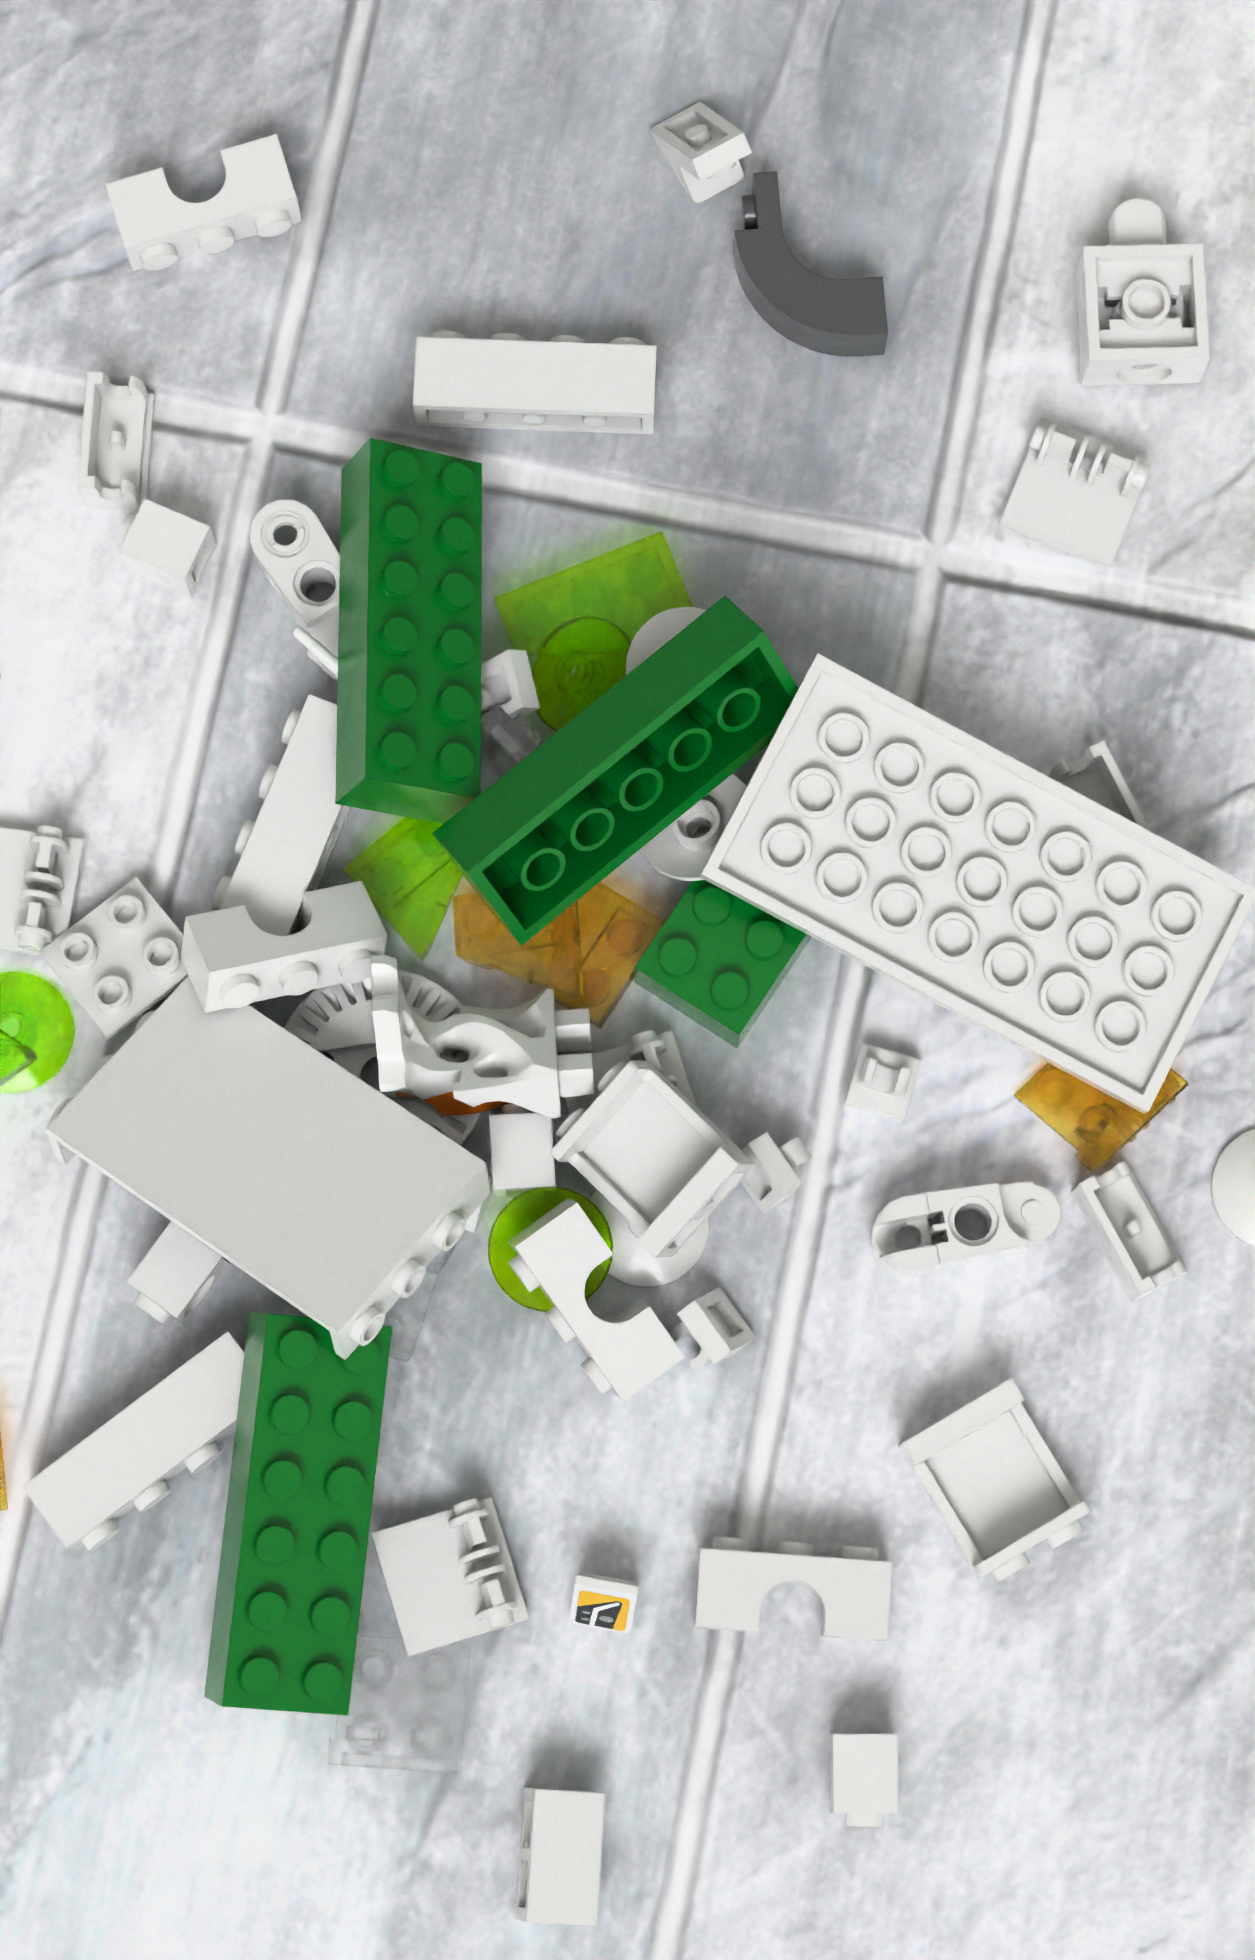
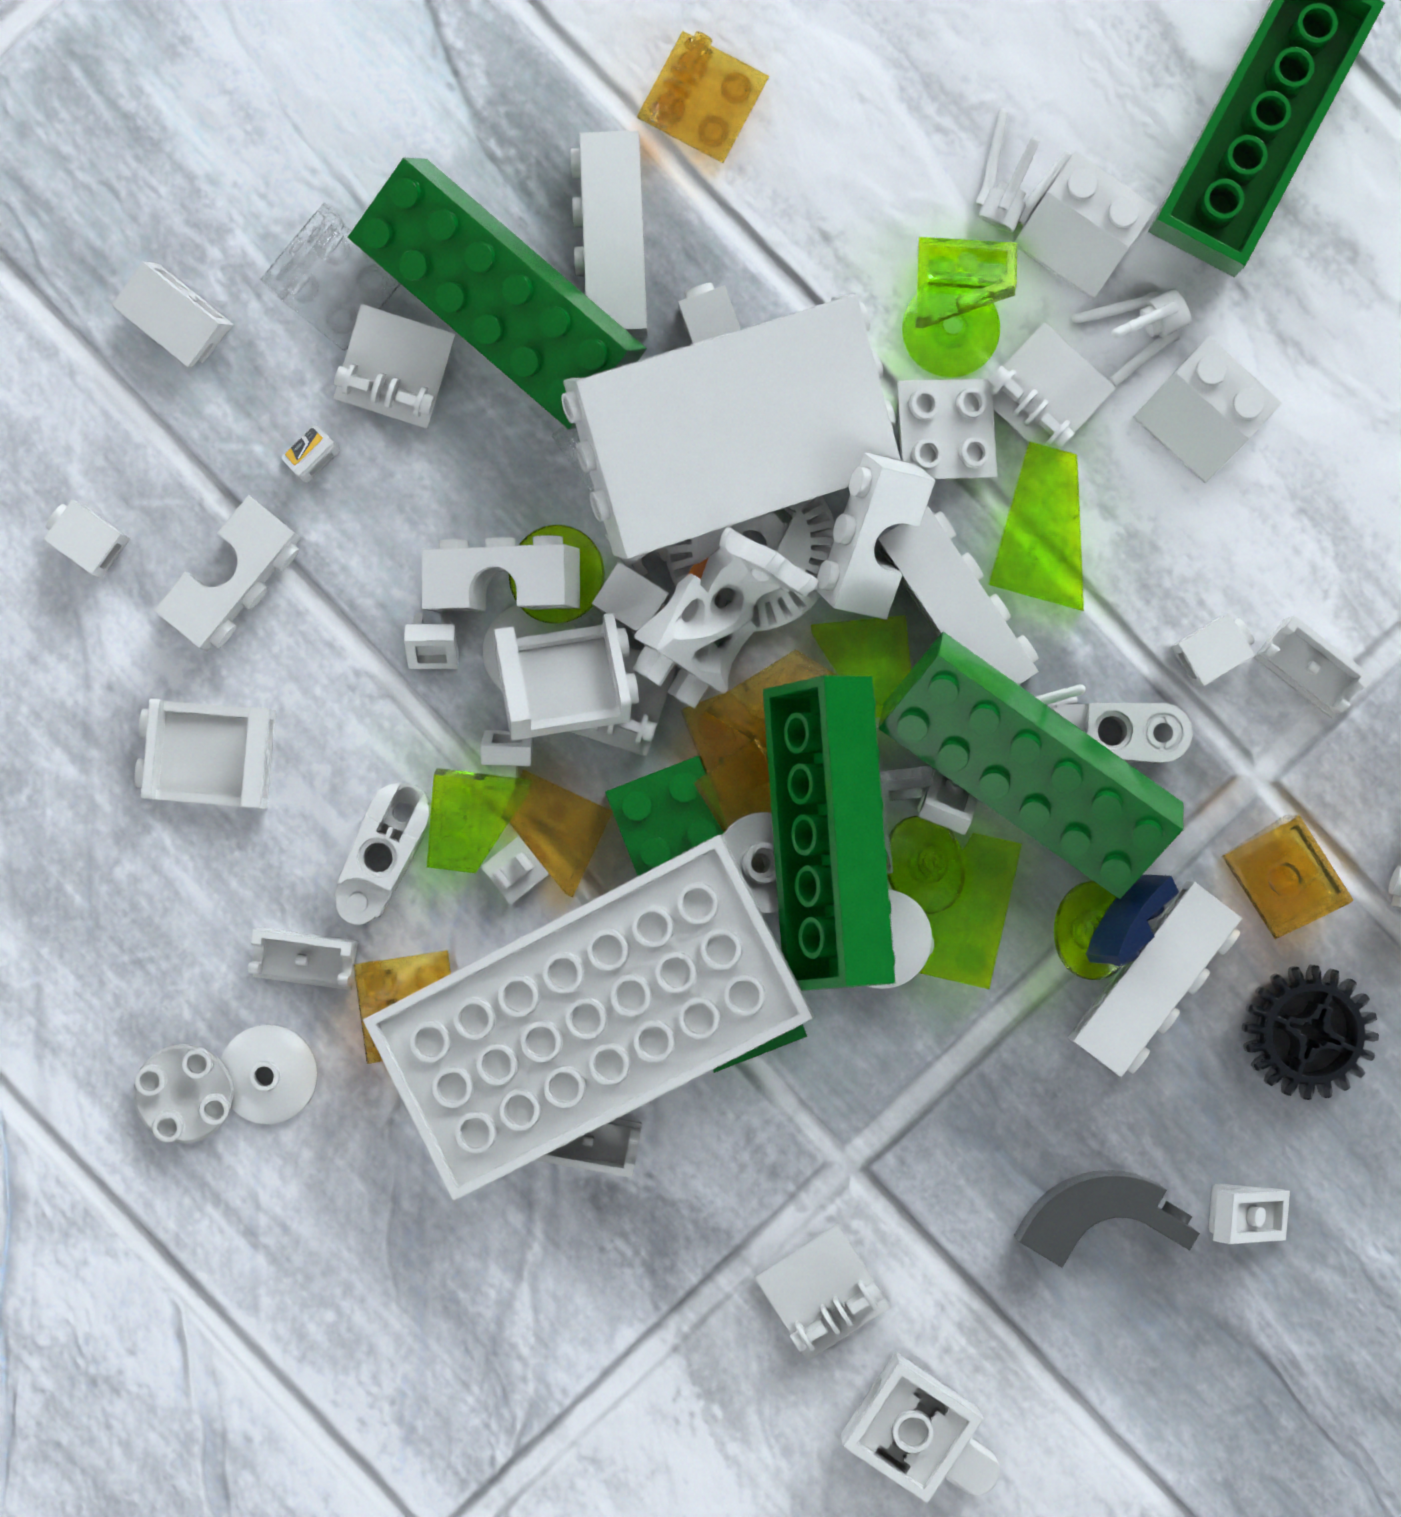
camera: 125 degrees right, 10 degrees up
(161, 795) = (1042, 531): none -> clear neon green wing
(342, 328) = (1287, 876): none -> clear yellow slope
(474, 159) = (1319, 1010): none -> black gear
(504, 443) = (1125, 923): none -> dark blue slope
(532, 471) = (1075, 925): none -> clear neon green dish
(635, 904) = (737, 785): none -> clear yellow piece
(808, 1070) = (560, 829): none -> clear yellow wing
(861, 1159) = (470, 816): none -> clear neon green wing

